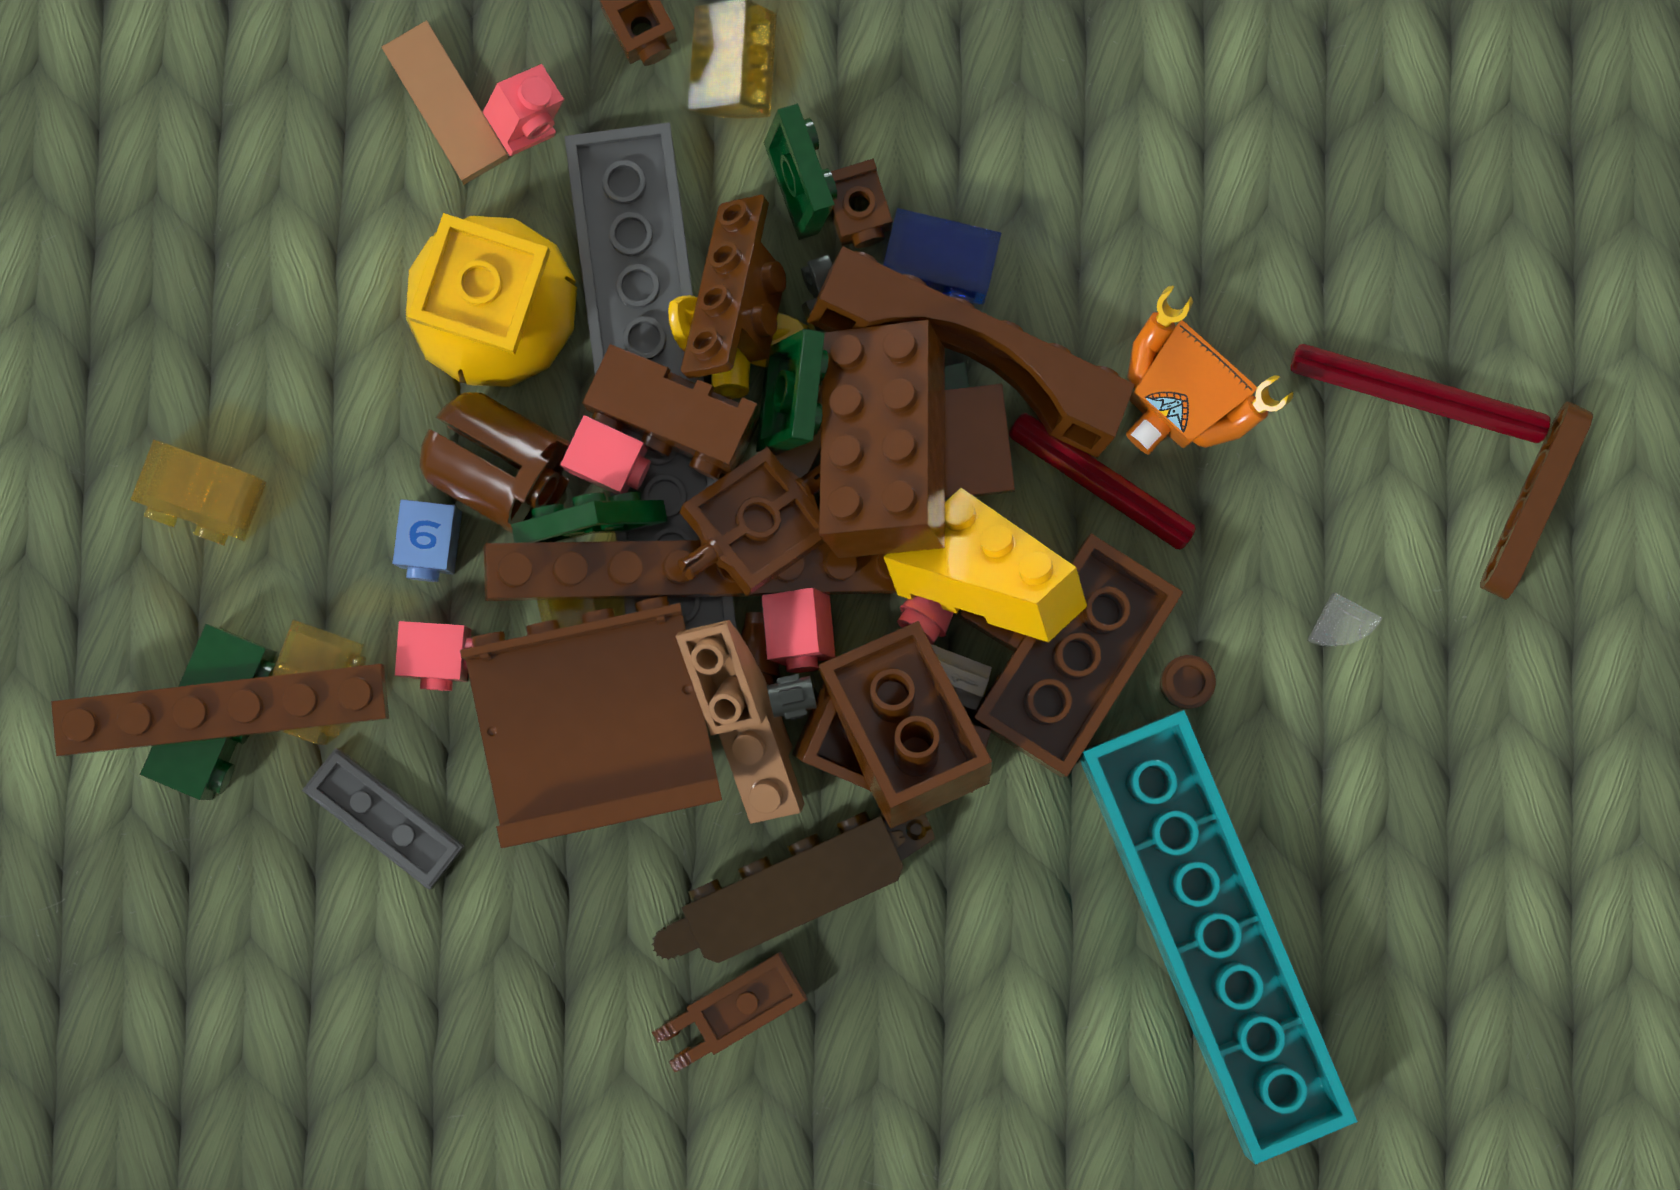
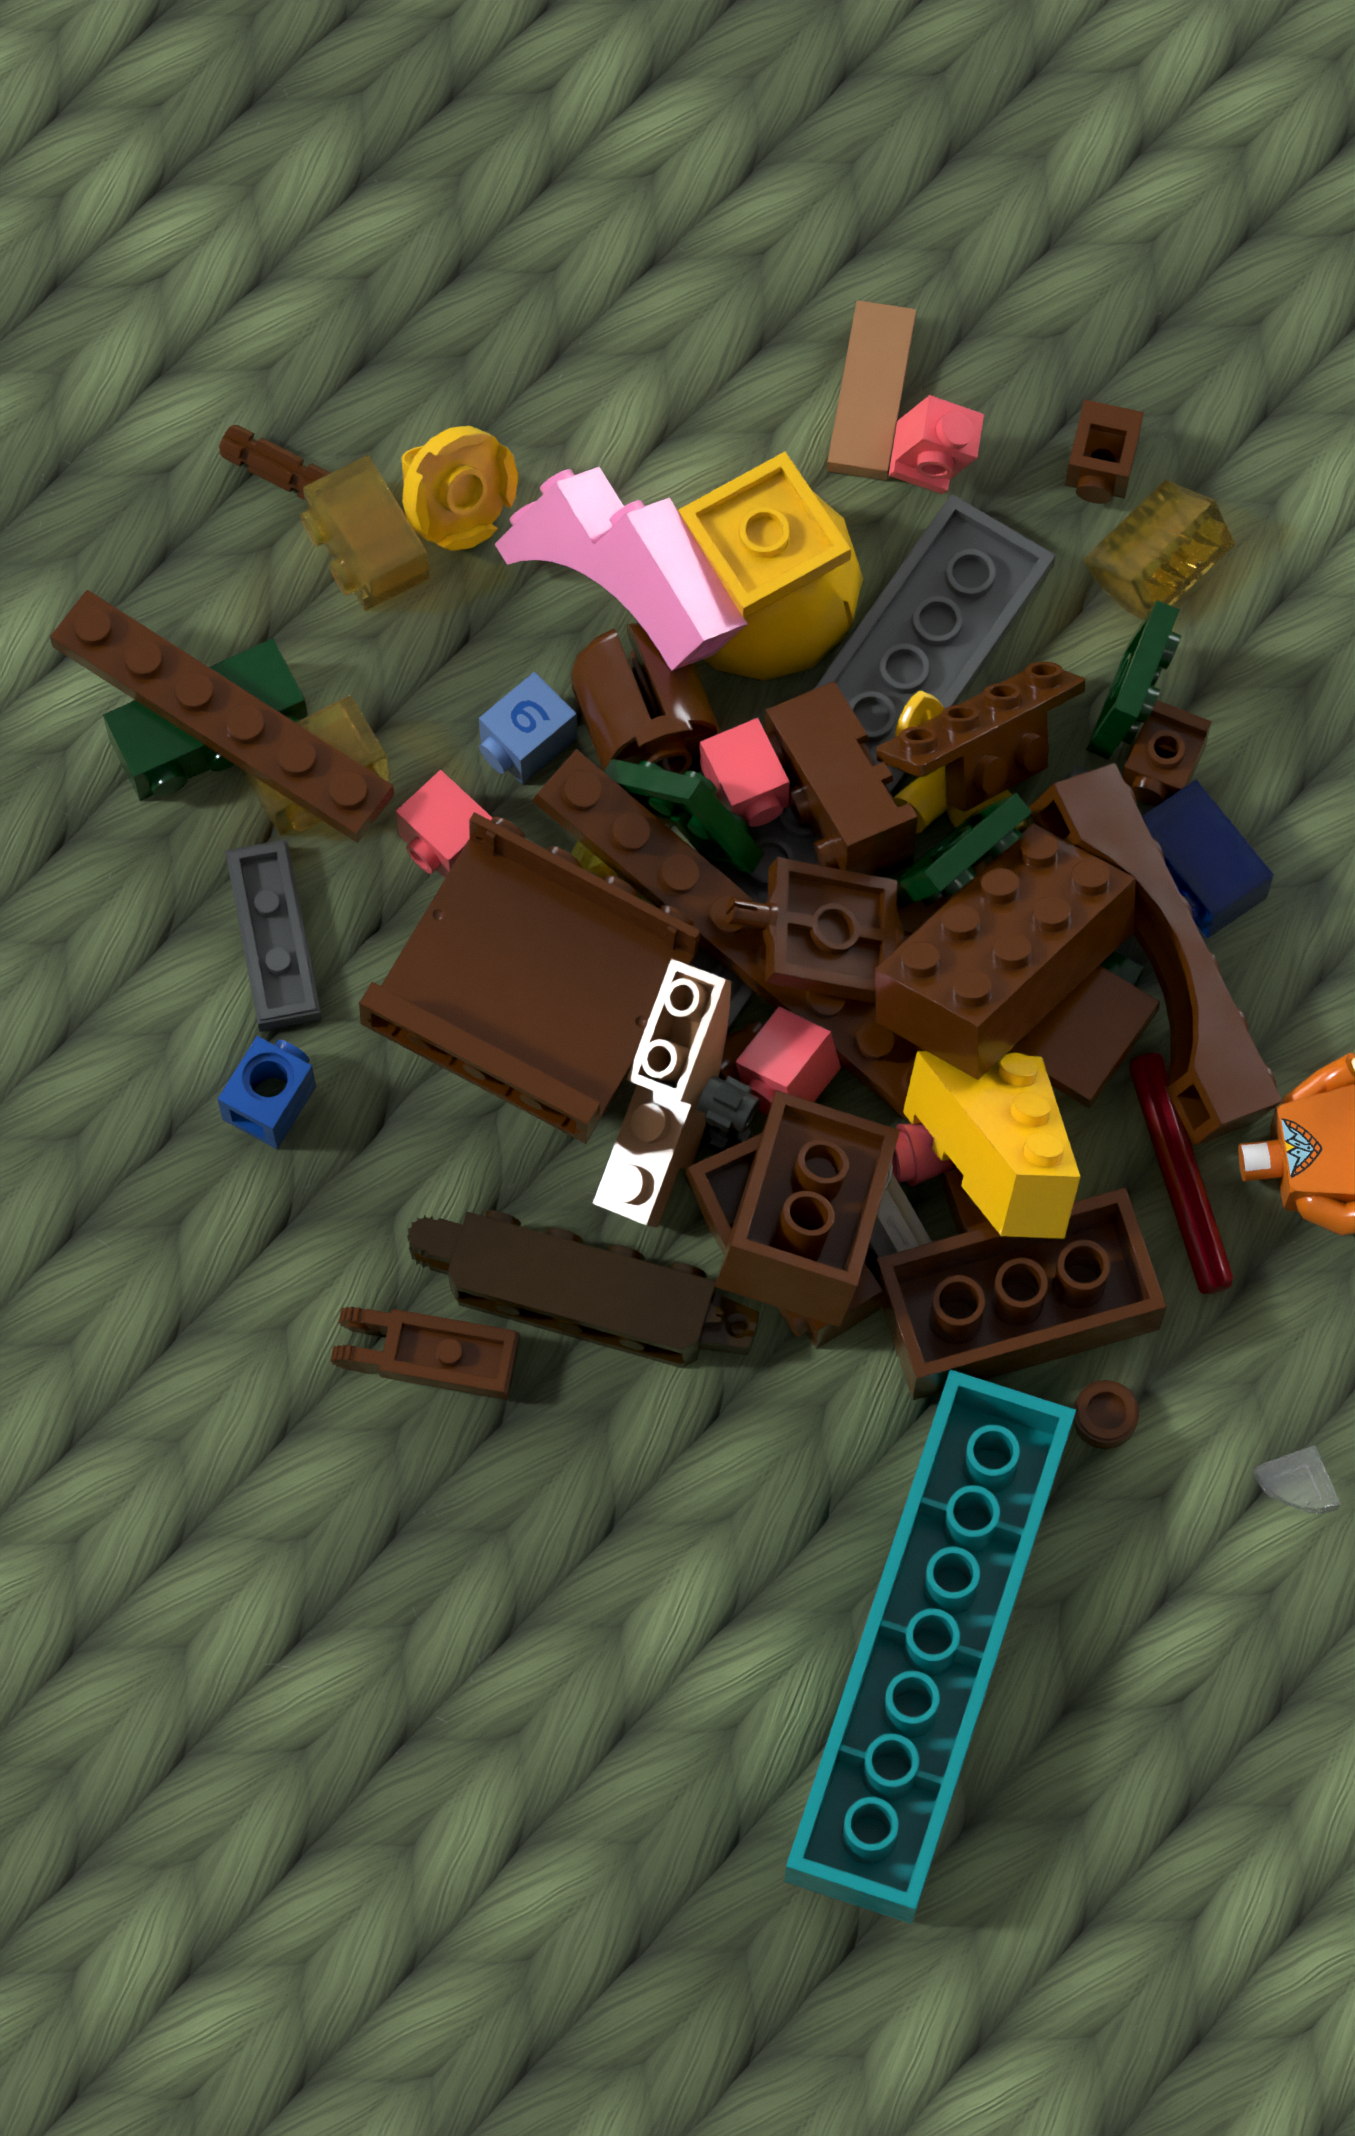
camera: 45 degrees right, 15 degrees down
(88, 492) = (268, 460): none -> reddish brown axle
(232, 410) = (458, 486): none -> yellow tile
(400, 369) = (636, 555): none -> bright pink arch
(469, 954) = (262, 1116): none -> blue brick

